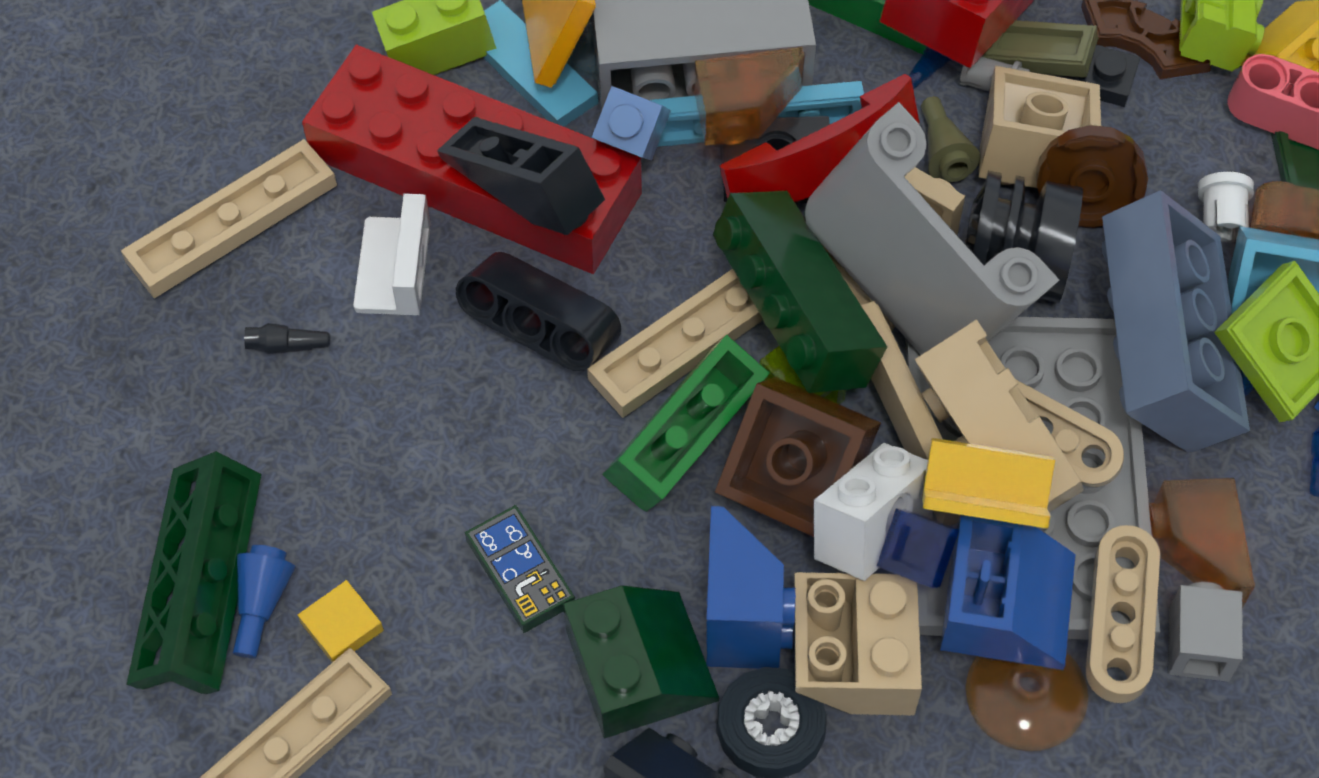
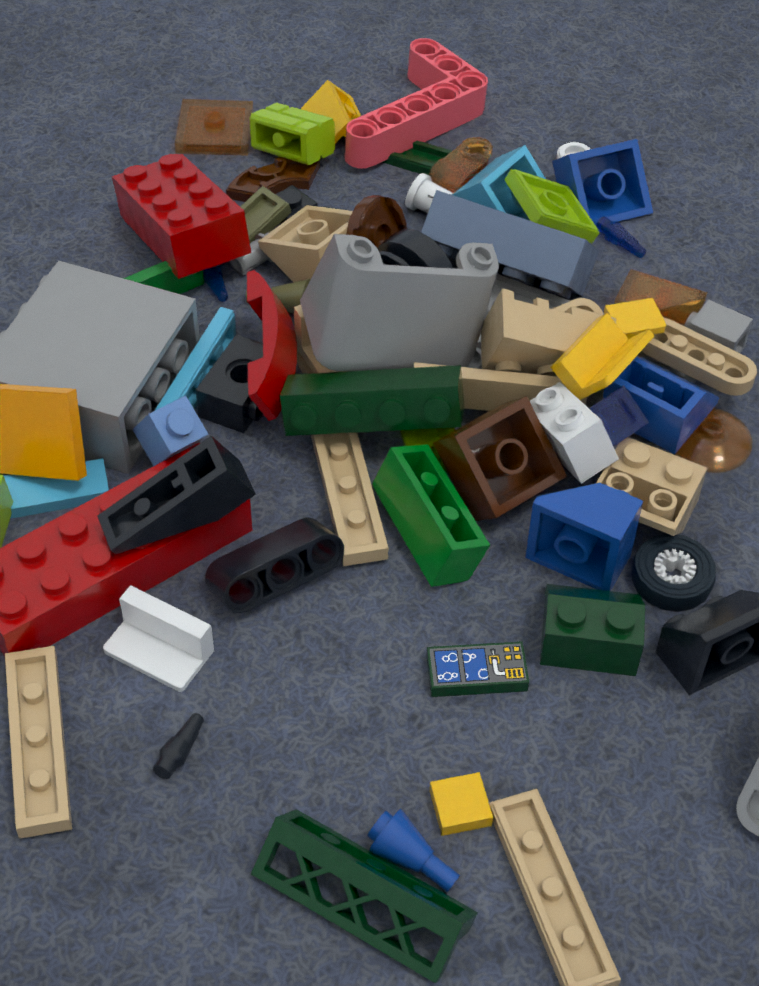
camera: 65 degrees left, 10 degrees down
(745, 93) = (195, 362): clear orange slope -> none
(1114, 511) = (637, 316): none -> yellow panel

